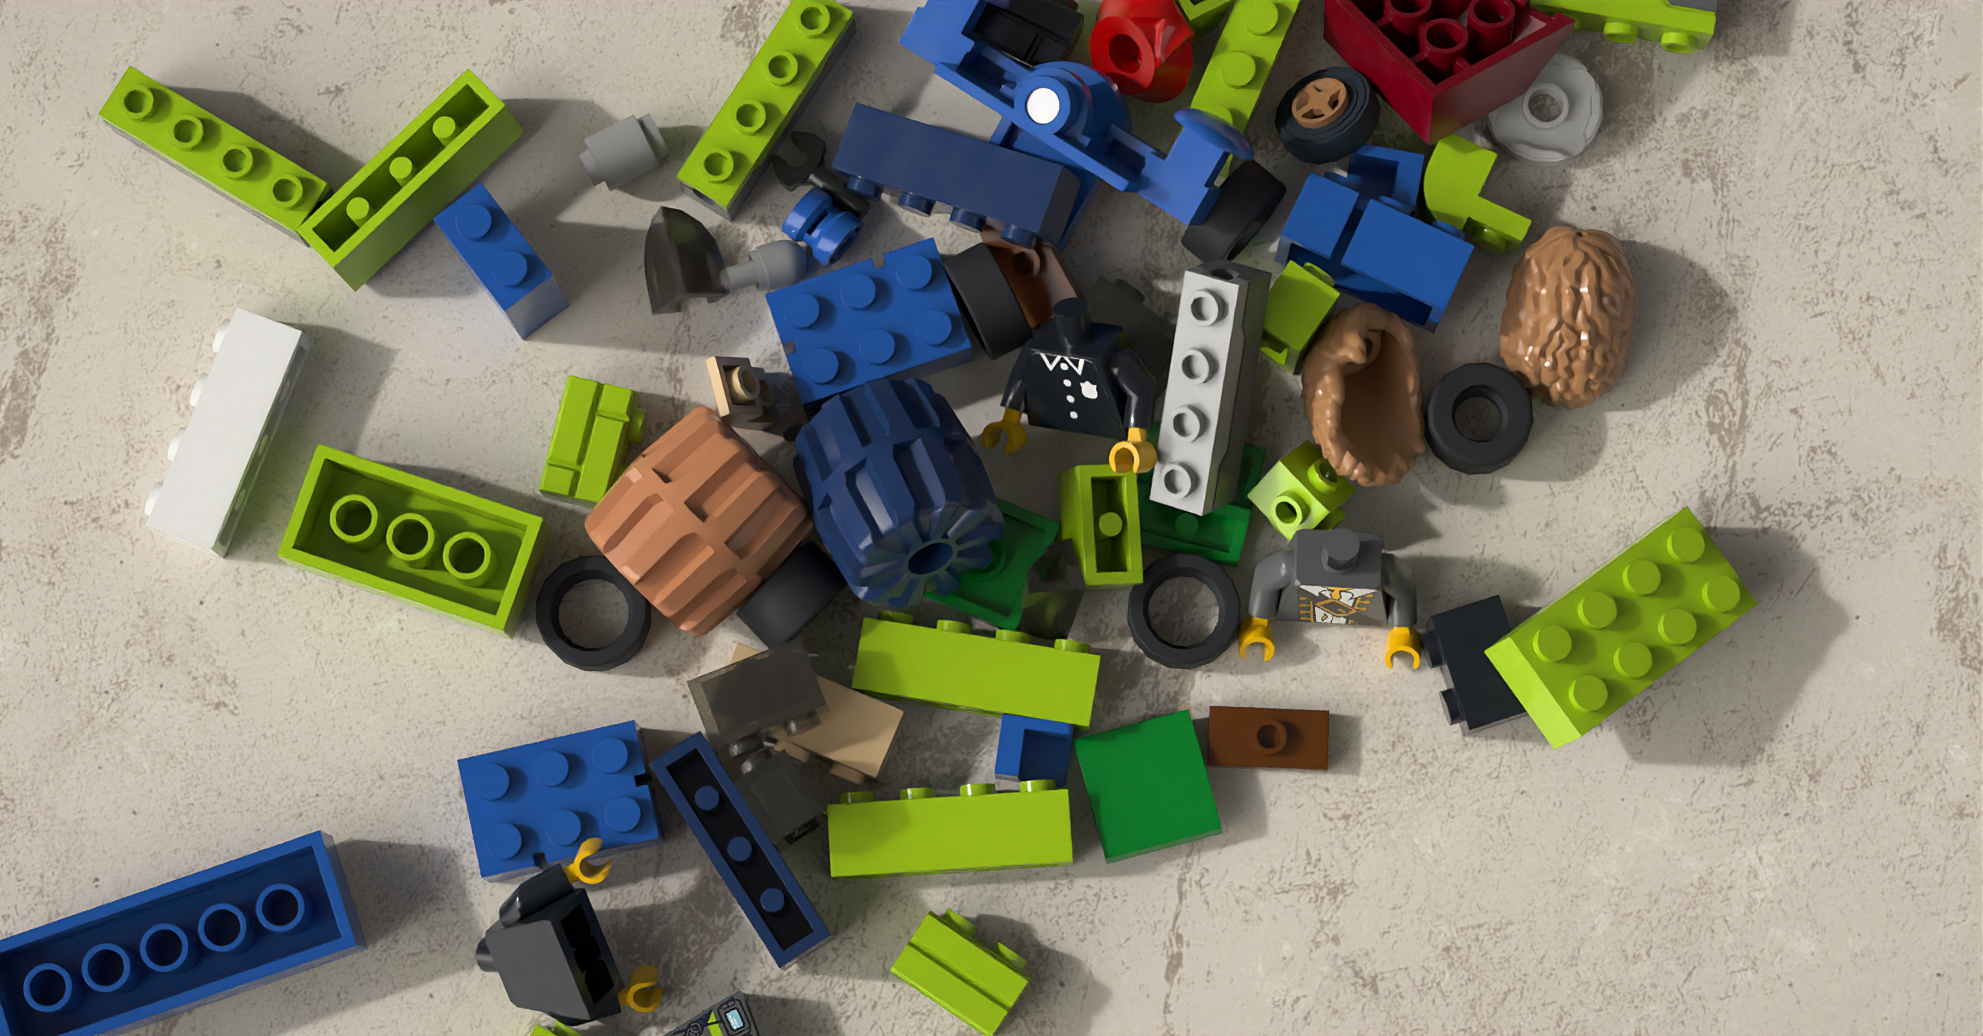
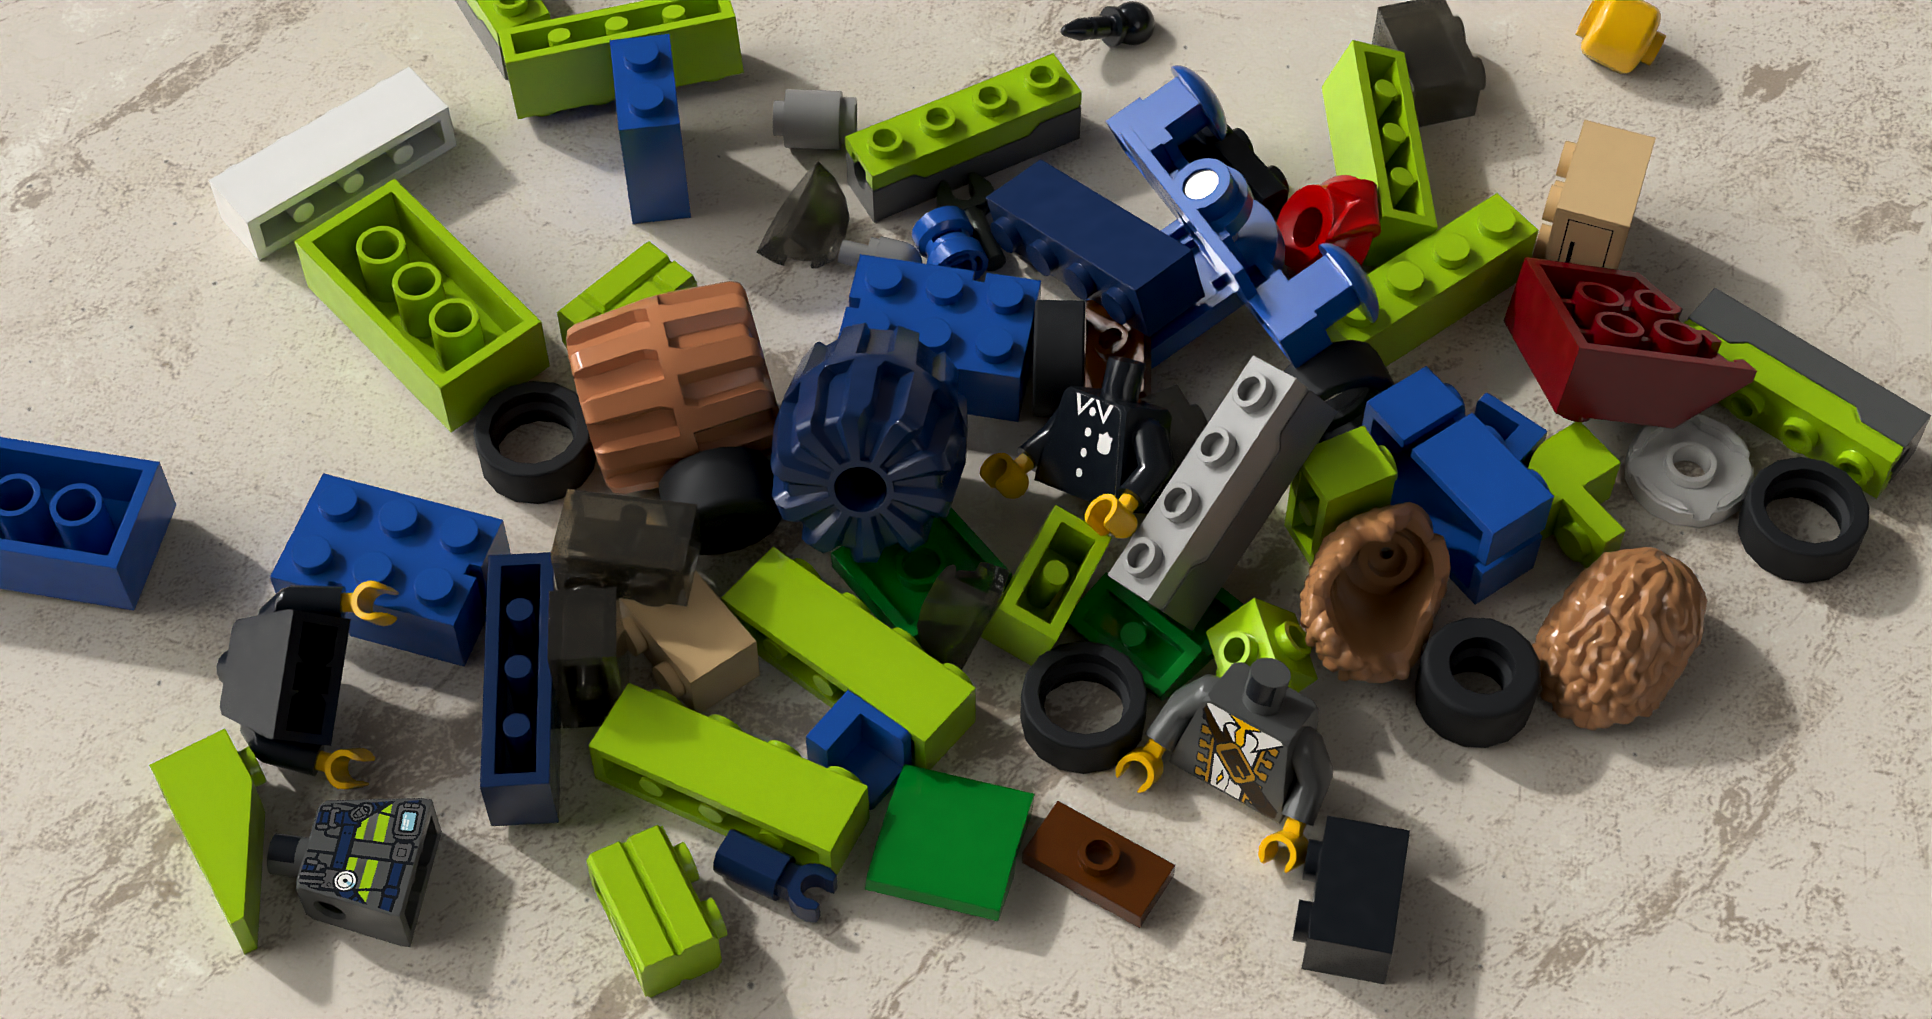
camera: 25 degrees right, 25 degrees down
(742, 393) = (781, 318): tan slope -> none
(1025, 889) = (772, 873): none -> dark blue bar
(1327, 115) = (1476, 364): black wheel -> none
(1621, 628) = (1522, 919): lime brick -> none
(1680, 75) = (1814, 482): none -> black tyre

